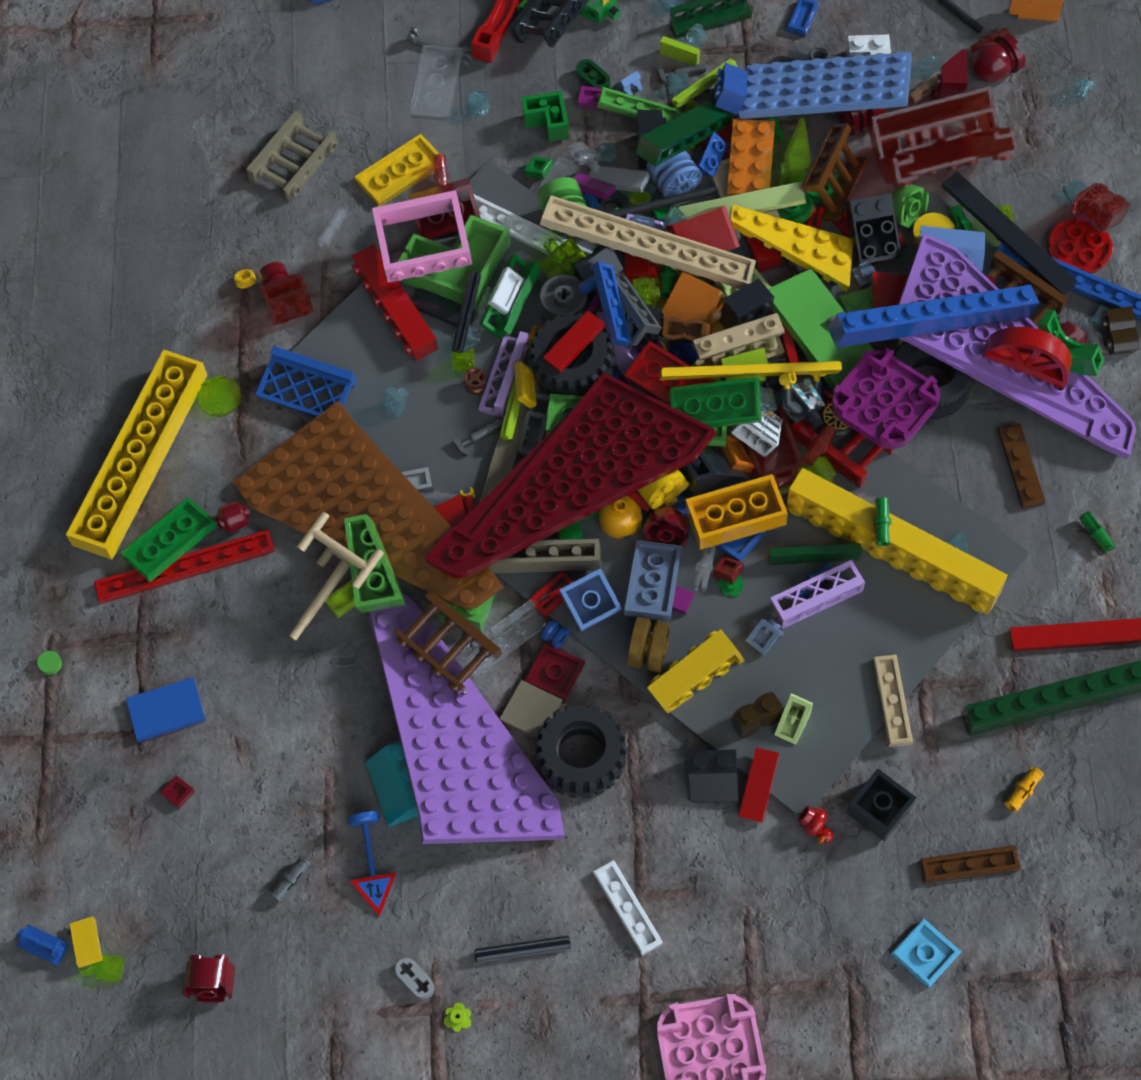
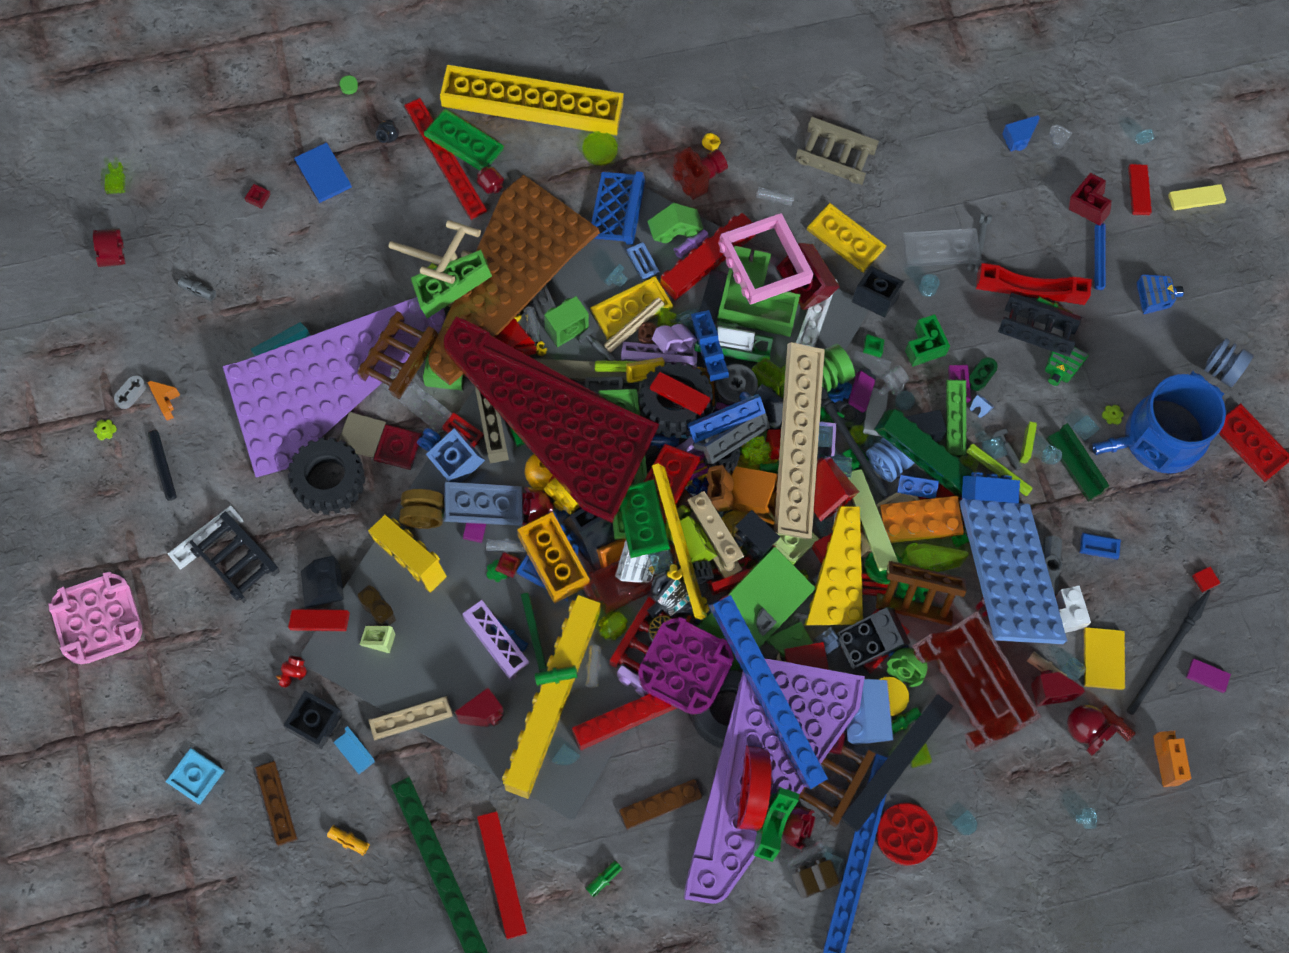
camera: 70 degrees right, 5 degrees up
(42, 944) = (127, 134): blue hinge -> none
(86, 942) = (131, 161): yellow tile -> none
(131, 624) = (387, 131): none -> black animal
(346, 322) = (673, 221): none -> bright green brick
(373, 317) = (691, 243): none -> medium lavender pin
(376, 887) = (198, 349): blue piece -> none
(382, 375) = (649, 274): none -> medium blue tile
(428, 939) = (163, 395): none -> orange slope
(437, 394) = (622, 308): none -> yellow tile
(440, 171) = (847, 268): clear red pin -> none
(444, 457) = (566, 321): none -> bright green brick
(463, 390) = (634, 324): none -> tan axle
(466, 312) = (702, 309): black axle -> none
(479, 147) = (877, 291): none -> black brick
(491, 351) = (674, 339): none -> lavender brick
(514, 313) = (709, 345): none -> blue slope
(642, 860) = (254, 552): none -> black fence
(765, 635) = (452, 604): sand blue bracket -> none
(818, 445) = (630, 616): clear red pin -> none
(883, 464) = (629, 678): none -> lavender plate
(898, 615) = (481, 710): none -> dark red slope
(920, 768) = (354, 751): none -> dark azure panel
(922, 37) = (1104, 658): none -> yellow tile
(929, 484) = (619, 720): none -> red brick
(1100, 207) = (945, 844): clear red brick -> none

